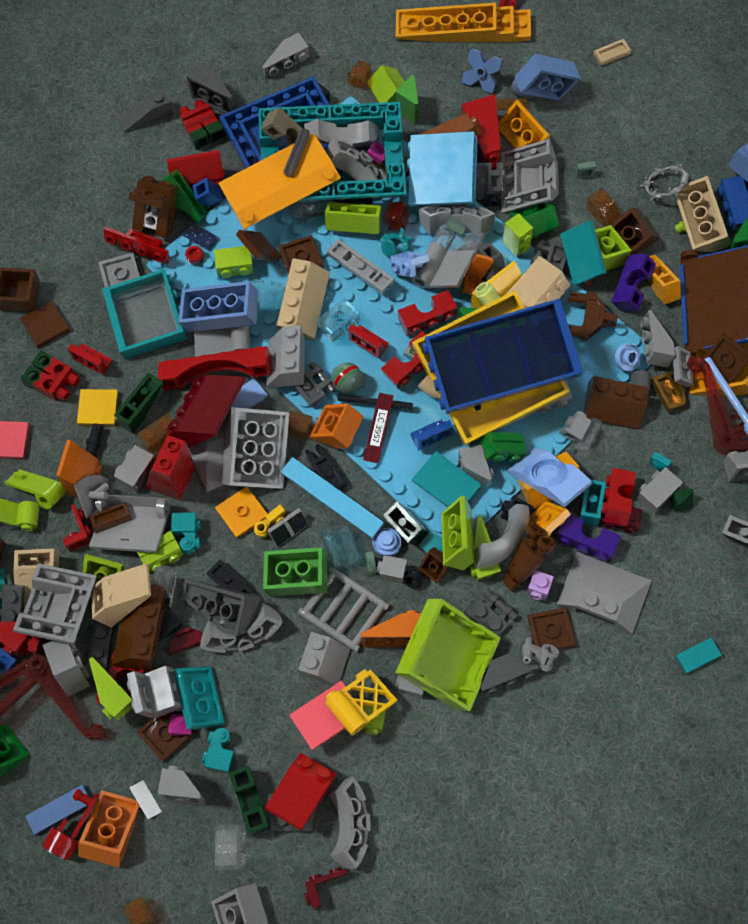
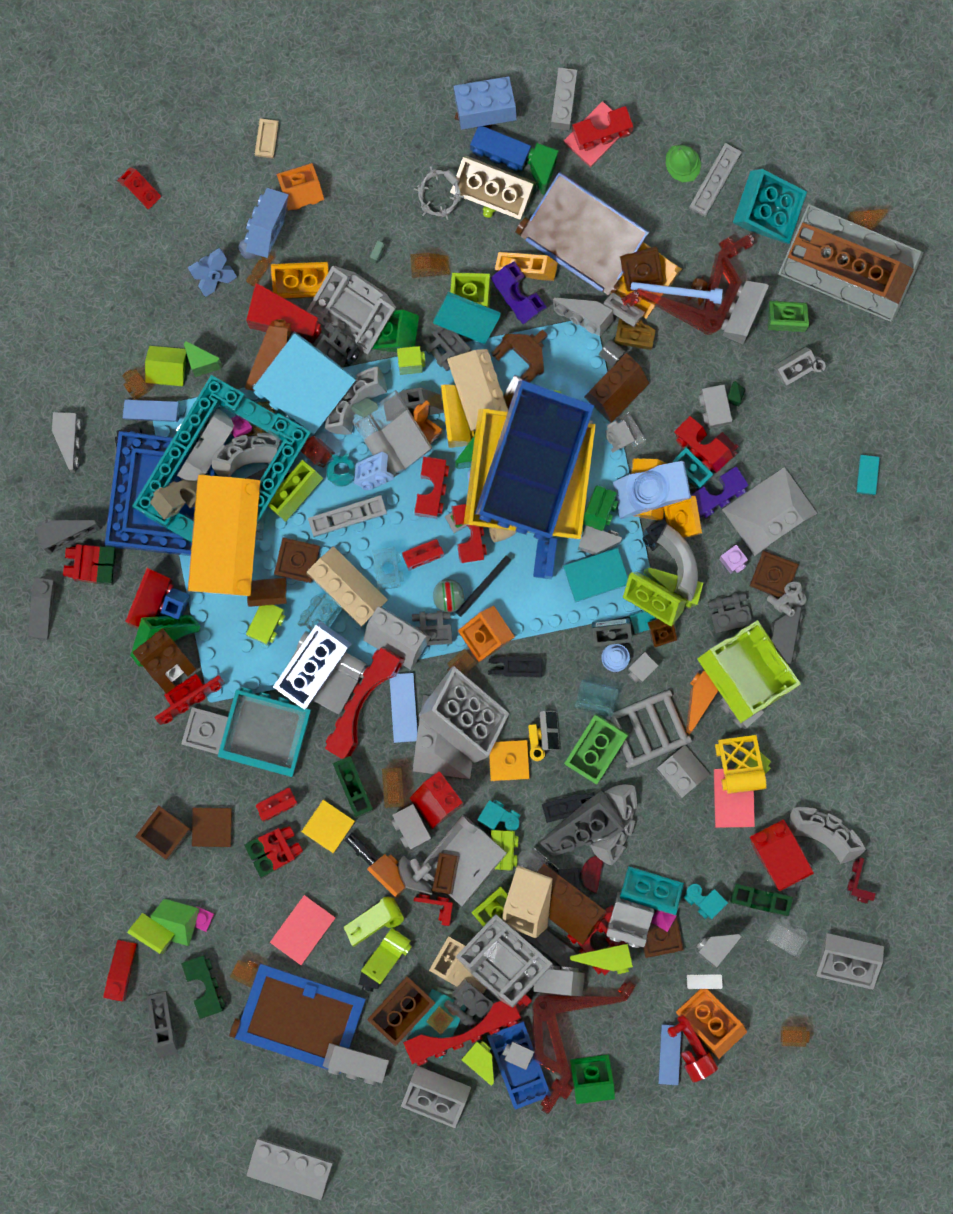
camera: 60 degrees left, 15 degrees up
(194, 255) = (231, 653): red tile -> none
(199, 235) = (213, 636): dark blue sticker -> none
(205, 408) = (404, 735): dark red slope -> none
(296, 152) = (211, 503): dark grey axle -> none
(332, 498) = (549, 678): medium azure tile -> none
(345, 91) = (151, 410): none -> medium blue tile
(371, 564) = (625, 682): sand green tile -> none
(378, 427) = (509, 599): sticker -> none
(413, 578) = (660, 655): black plate -> none
(464, 24) = (143, 252): light orange slope -> none
(486, 293) = (461, 430): yellowish green brick -> none
(528, 556) = (709, 557): reddish brown piece -> none
(593, 92) = (301, 186): none -> orange slope
(627, 357) = (585, 349): light blue plate -> none
(635, 230) = (468, 255): reddish brown slope -> none
(659, 461) = (692, 389): teal tile -> none

